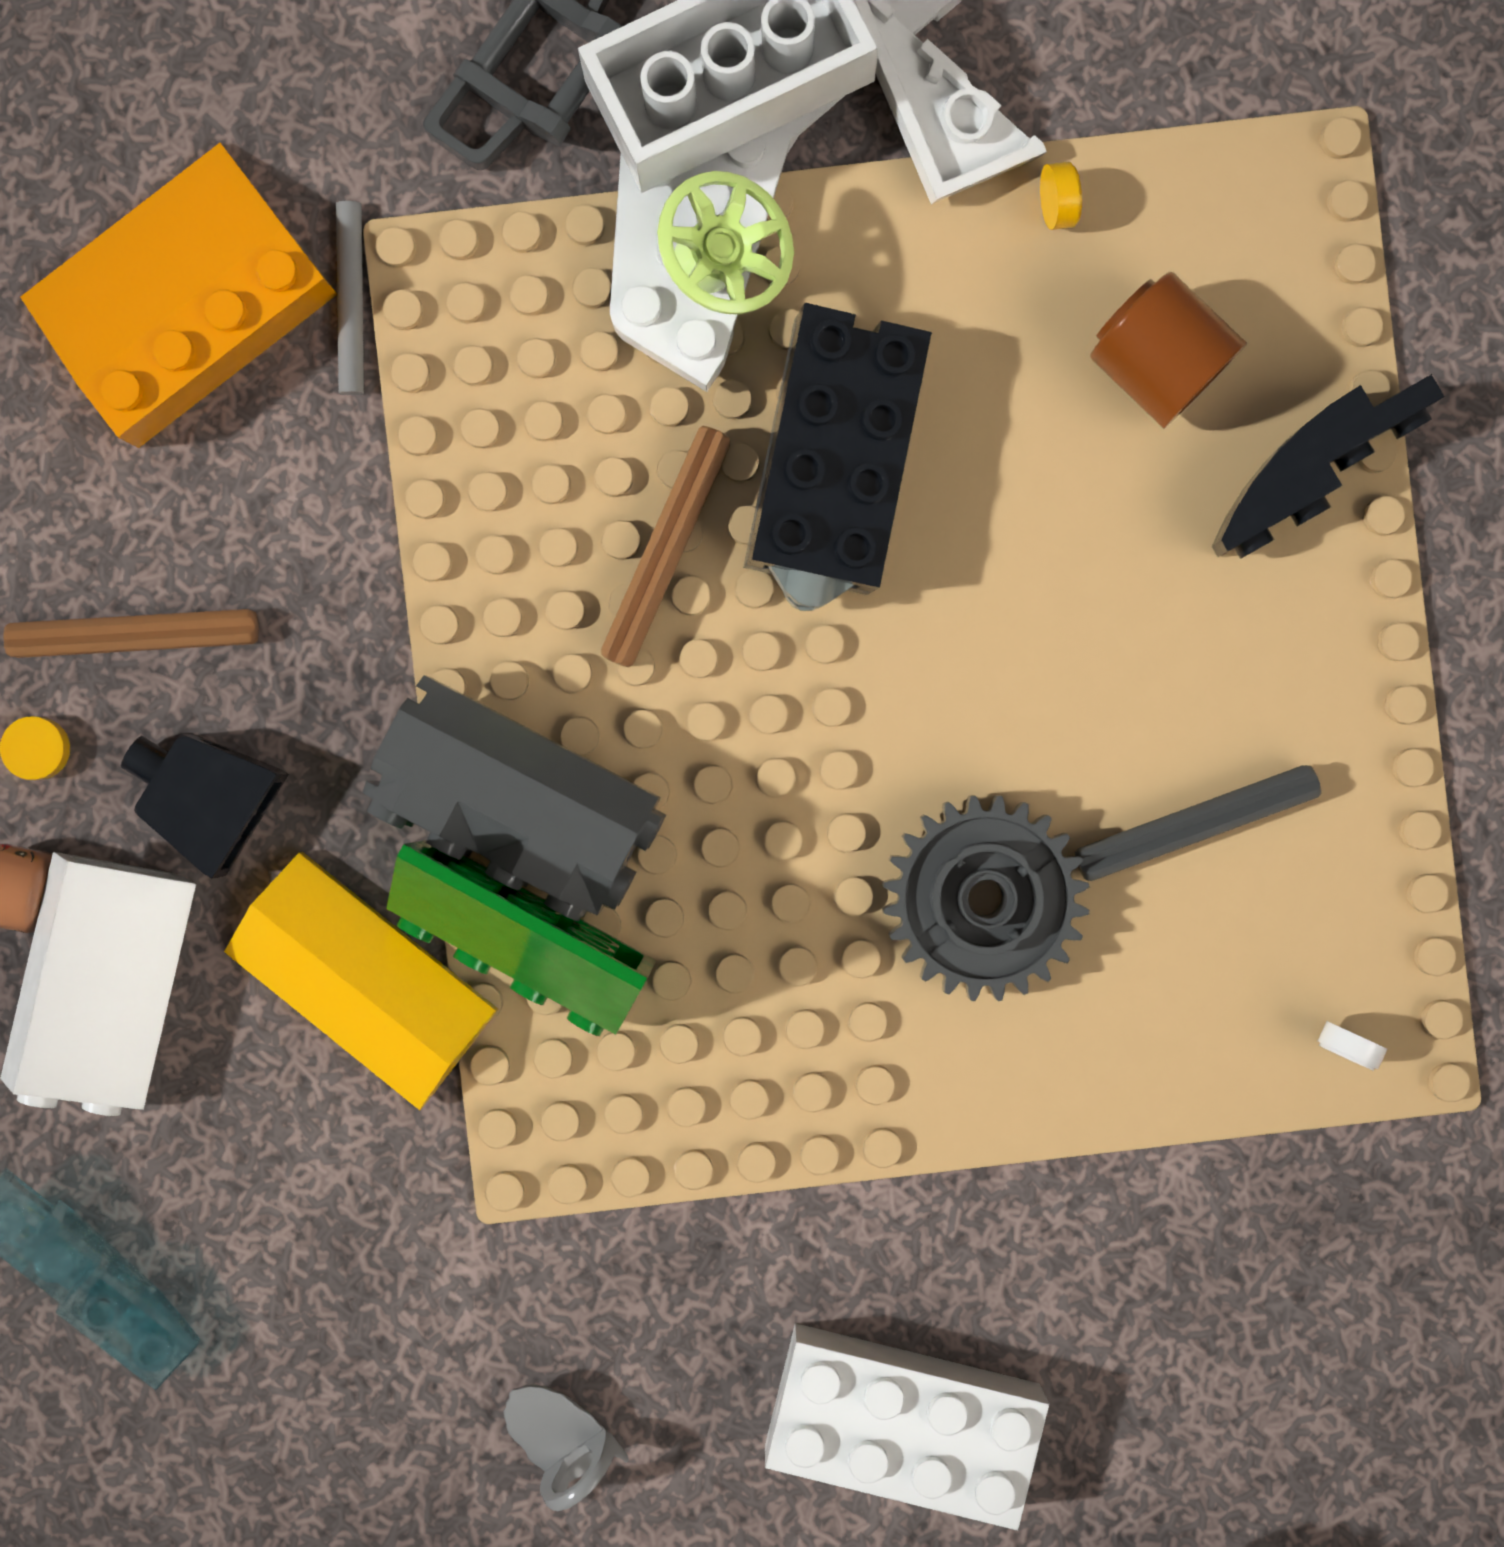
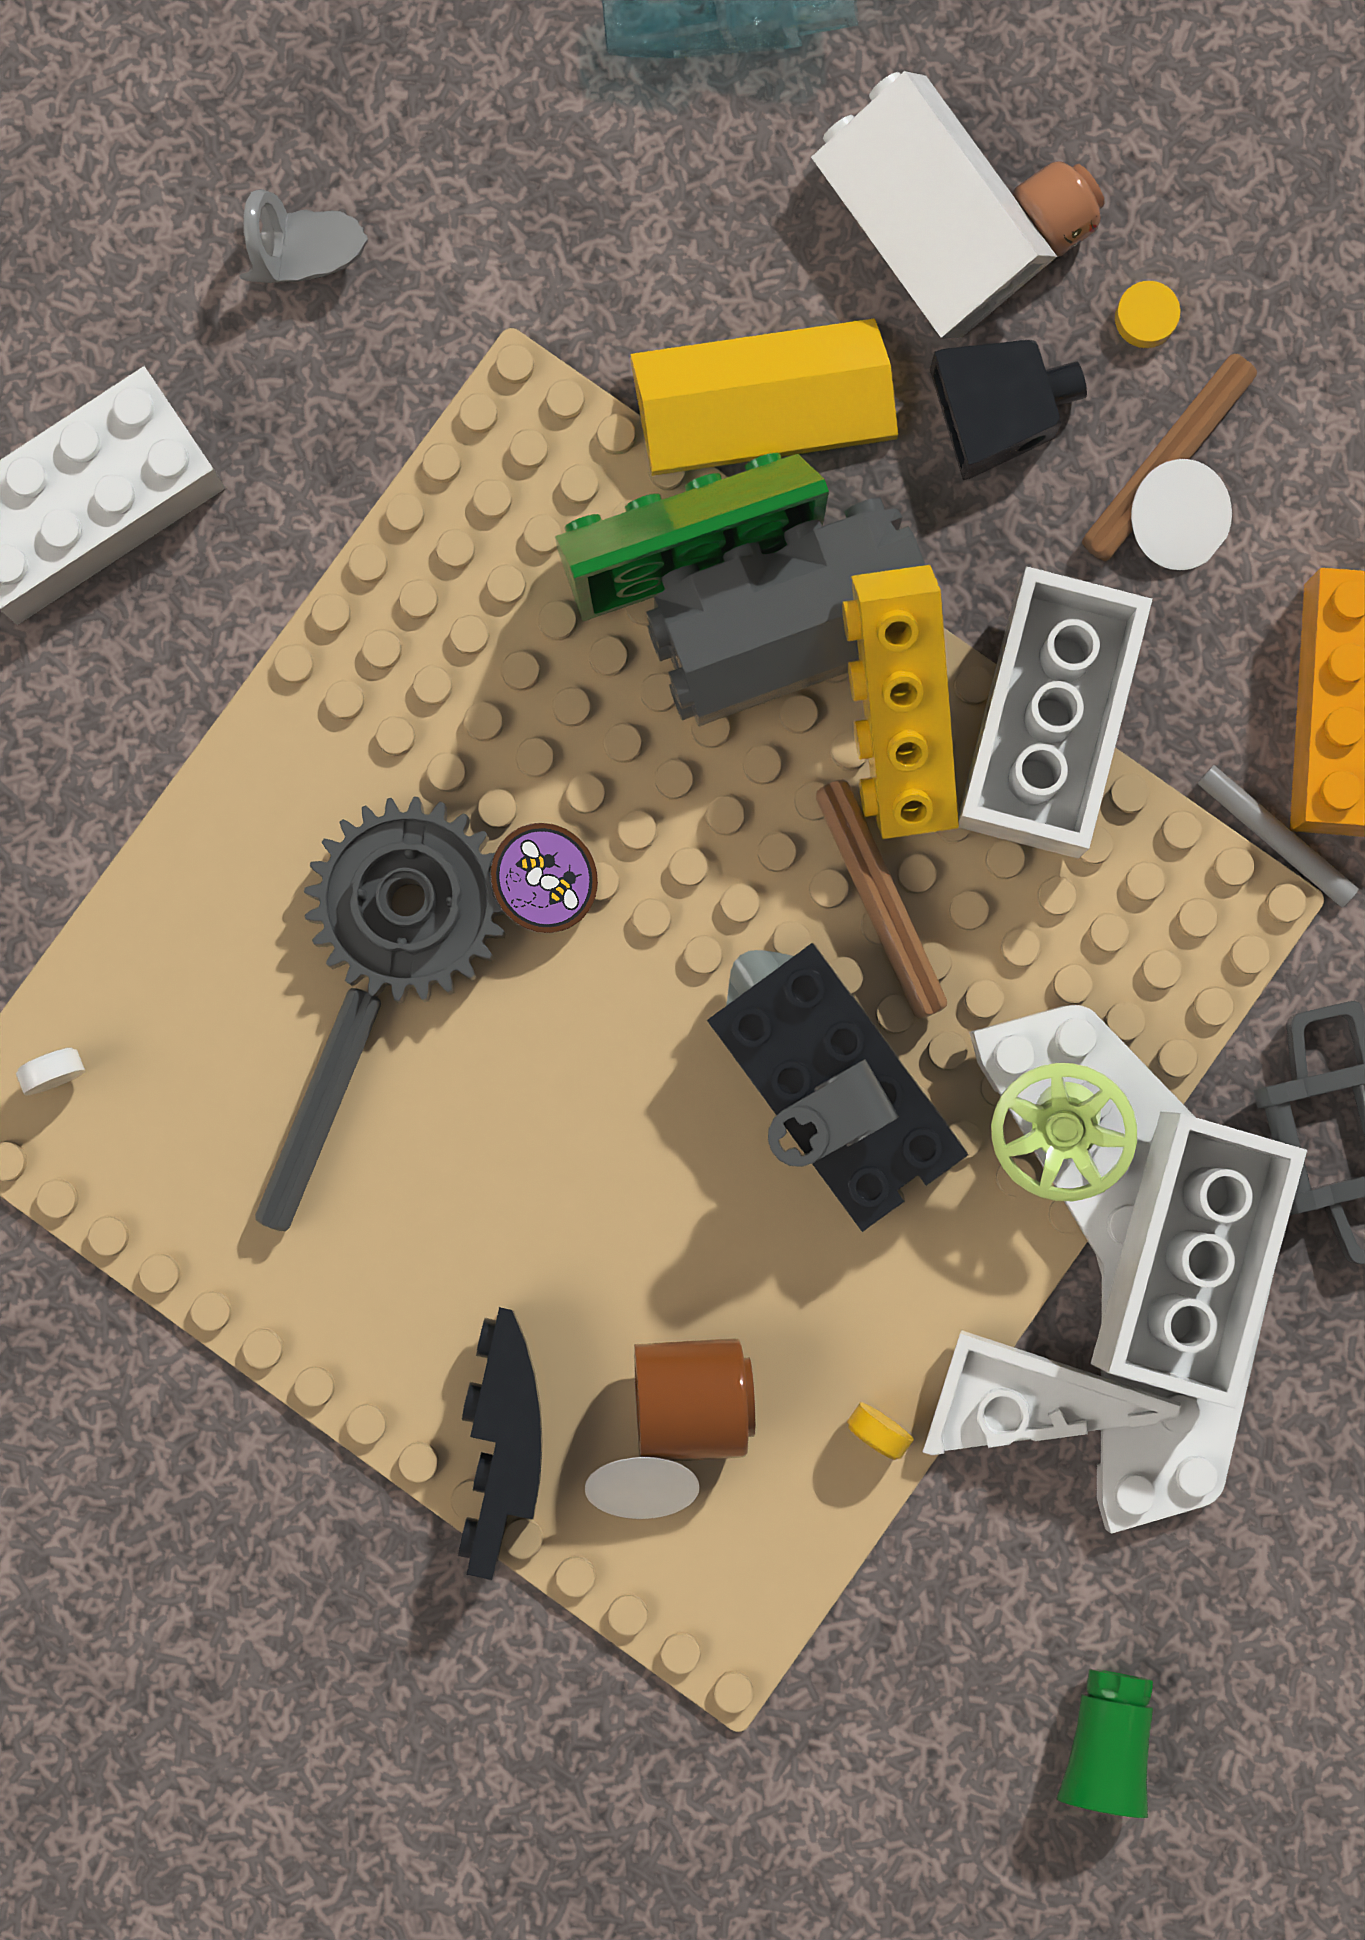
camera: 140 degrees right, 5 degrees down
(168, 585) = (1181, 514): none -> white sticker
(409, 539) = (1053, 712): none -> white brick
(505, 653) = (904, 701): none -> yellow brick
(861, 422) = (841, 1110): none -> dark grey piece
(877, 811) = (544, 877): none -> sticker
(1261, 329) = (642, 1488): none -> white sticker

